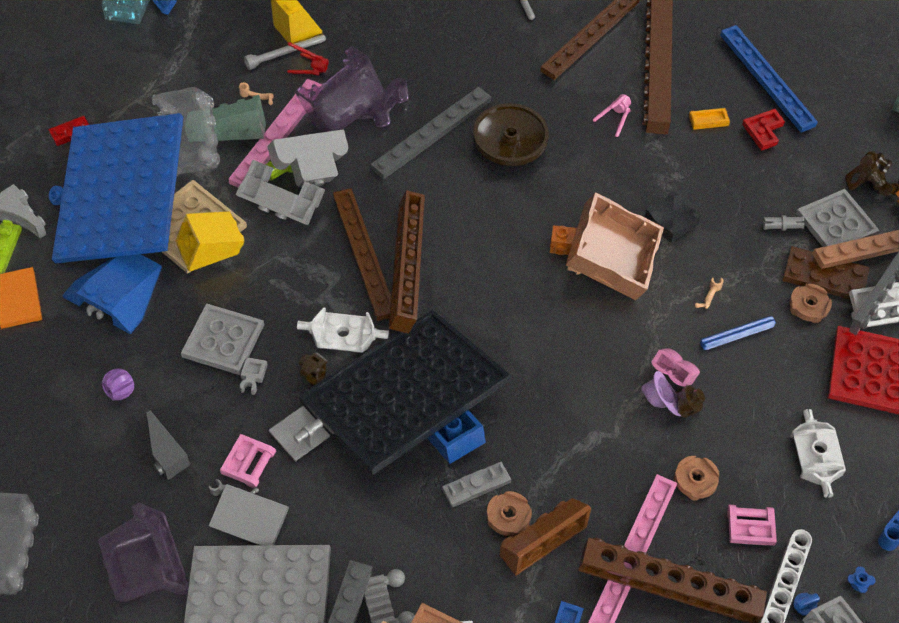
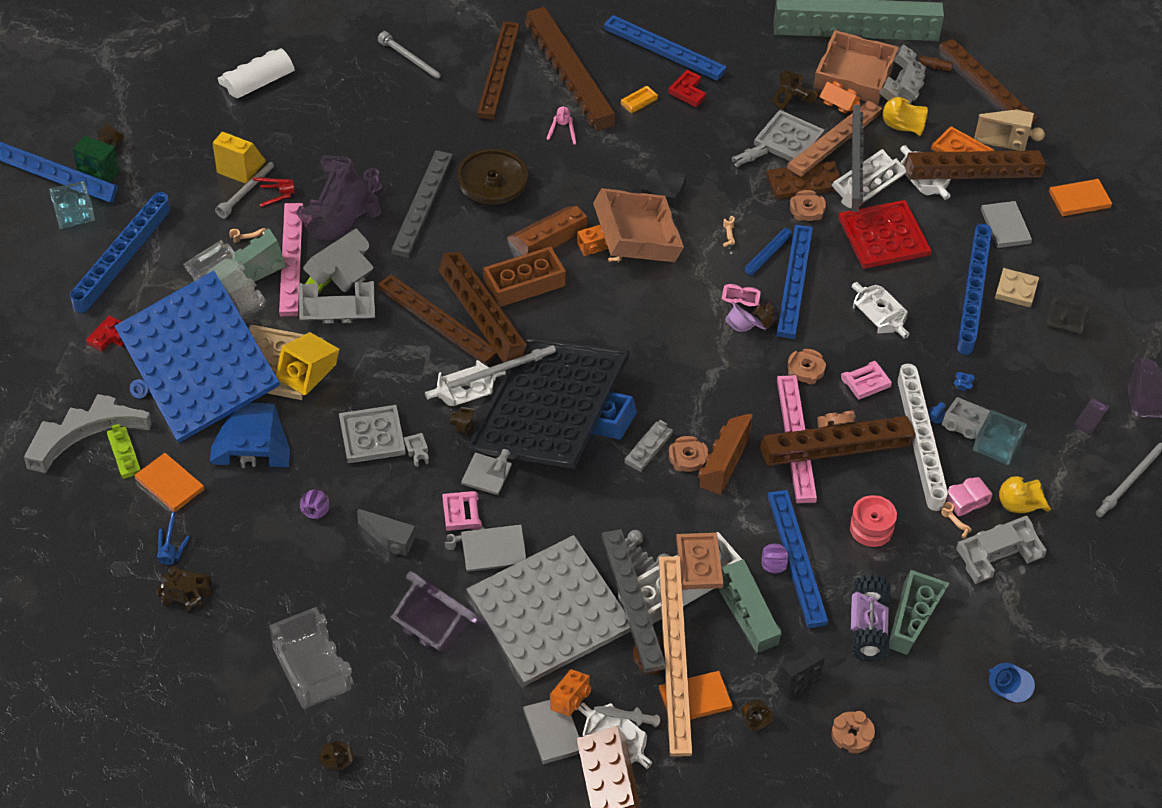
camera: 30 degrees left, 5 degrees down
(135, 62) = (120, 252): none -> blue beam
(424, 333) = (535, 355): none -> light grey bar
(471, 248) = (524, 276): none -> dark orange brick
(529, 214) = (550, 231): none -> dark orange slope
(692, 559) = (835, 419): none -> nougat plate
(743, 379) = (794, 282): none -> blue plate

